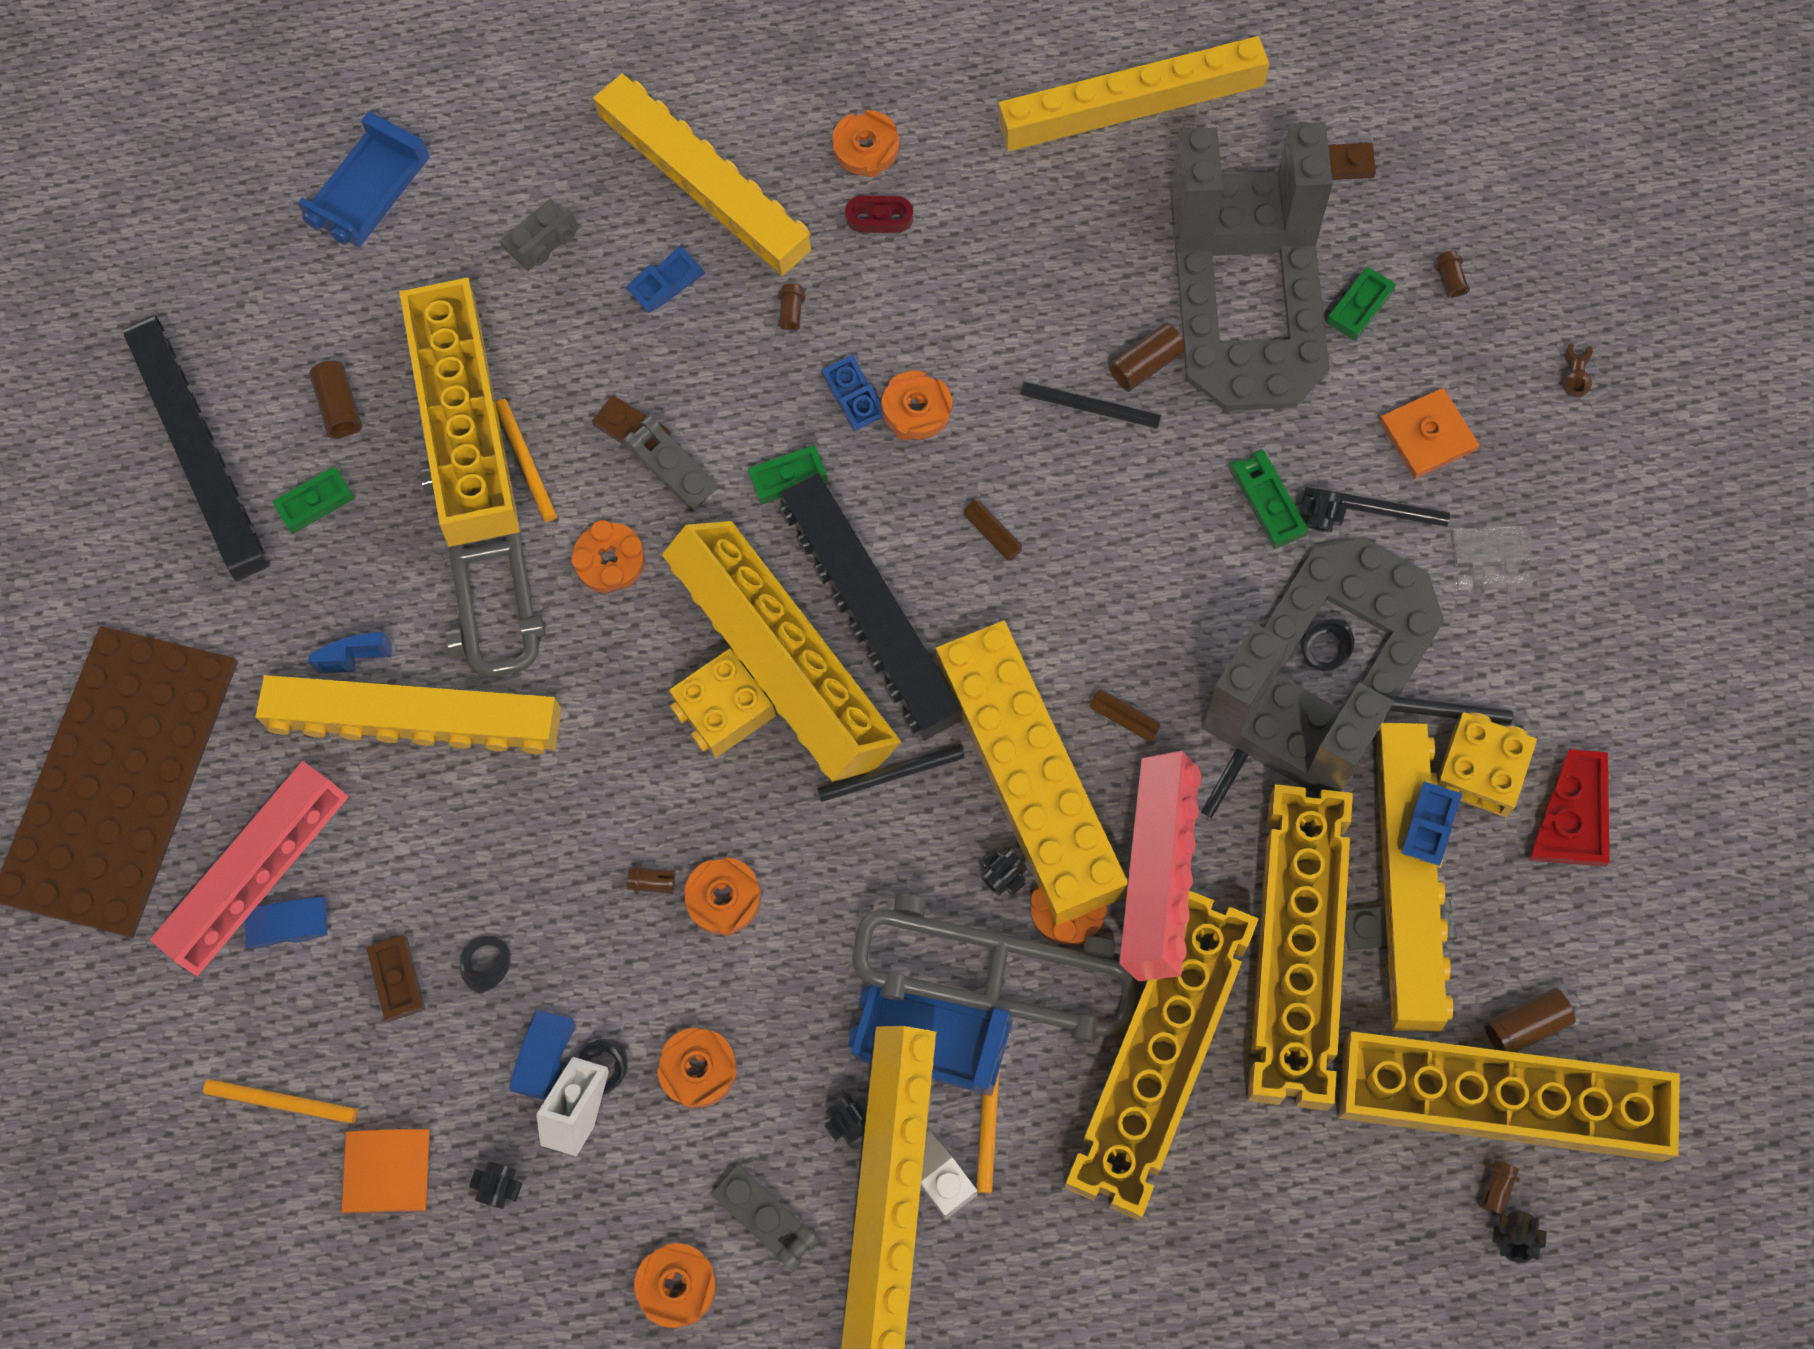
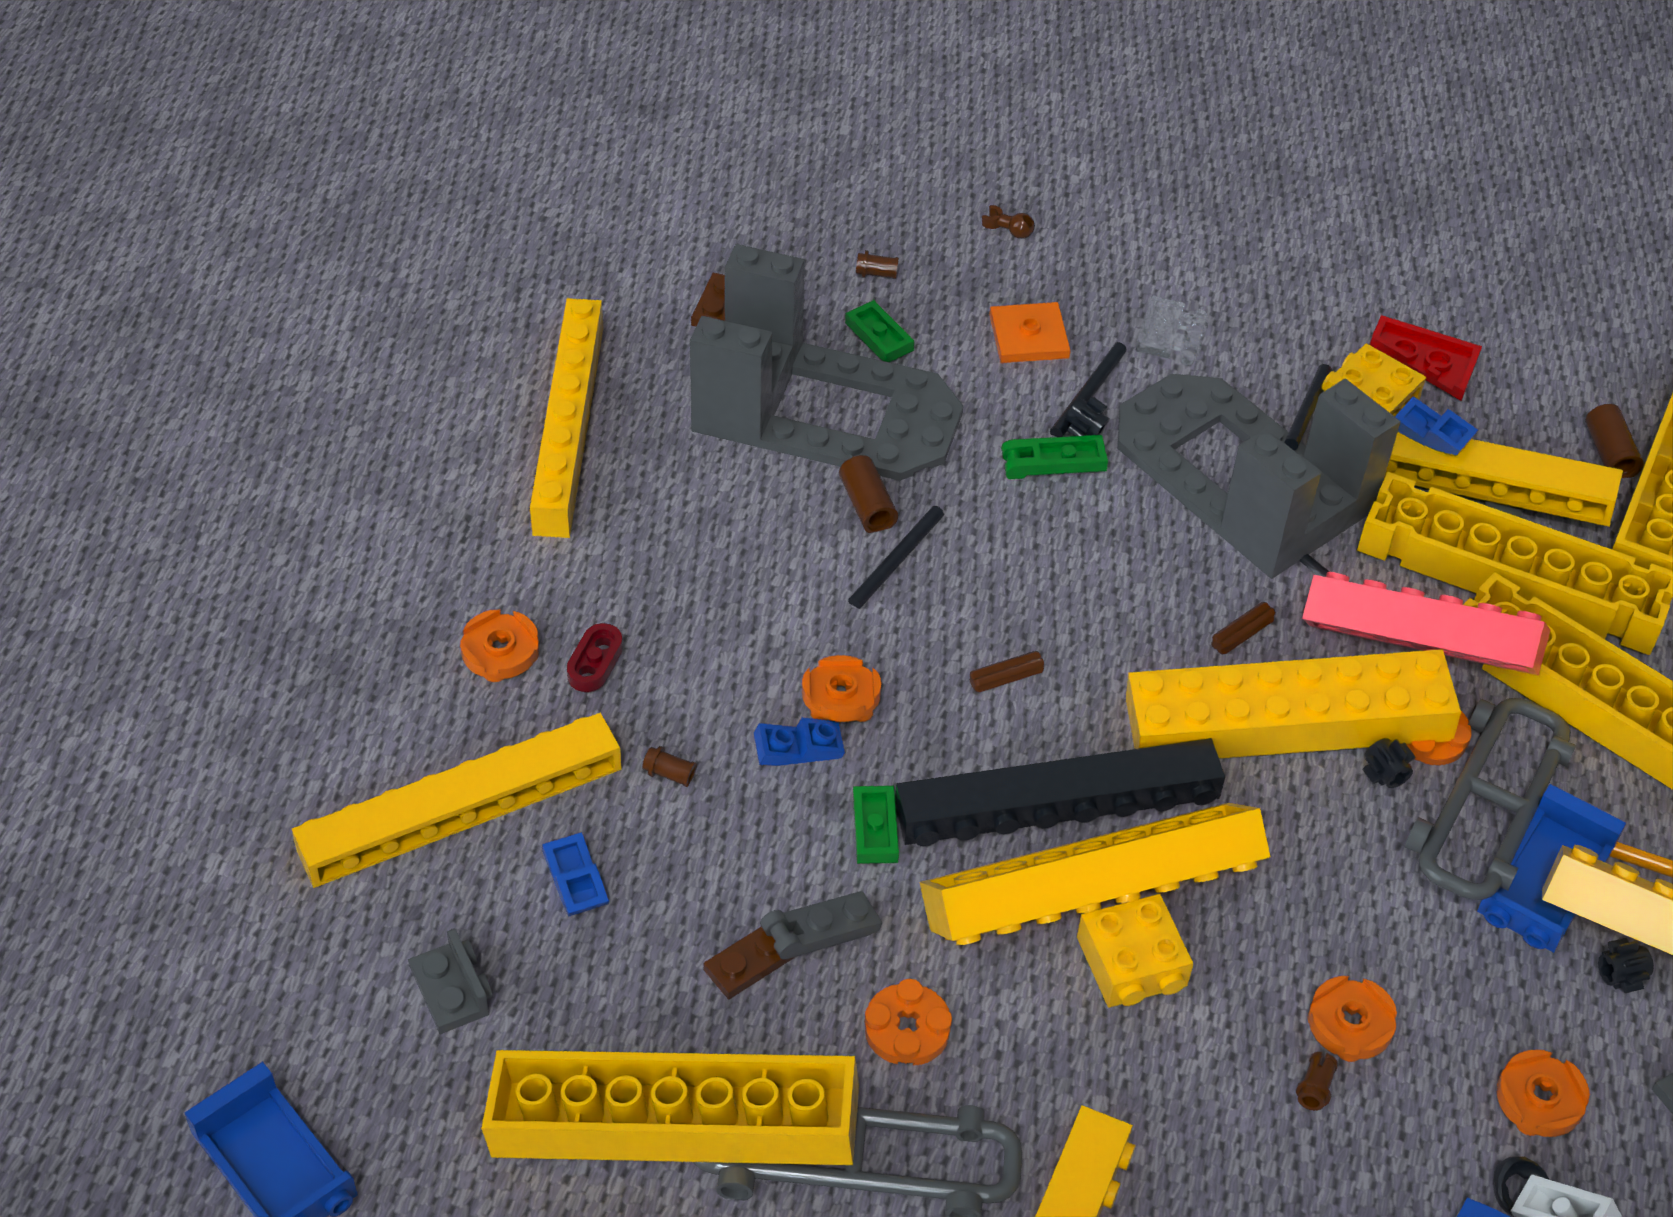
camera: 80 degrees left, 20 degrees down
(890, 773) = (1245, 796): black bar -> none
(1346, 647) = (1215, 446): black piece -> none

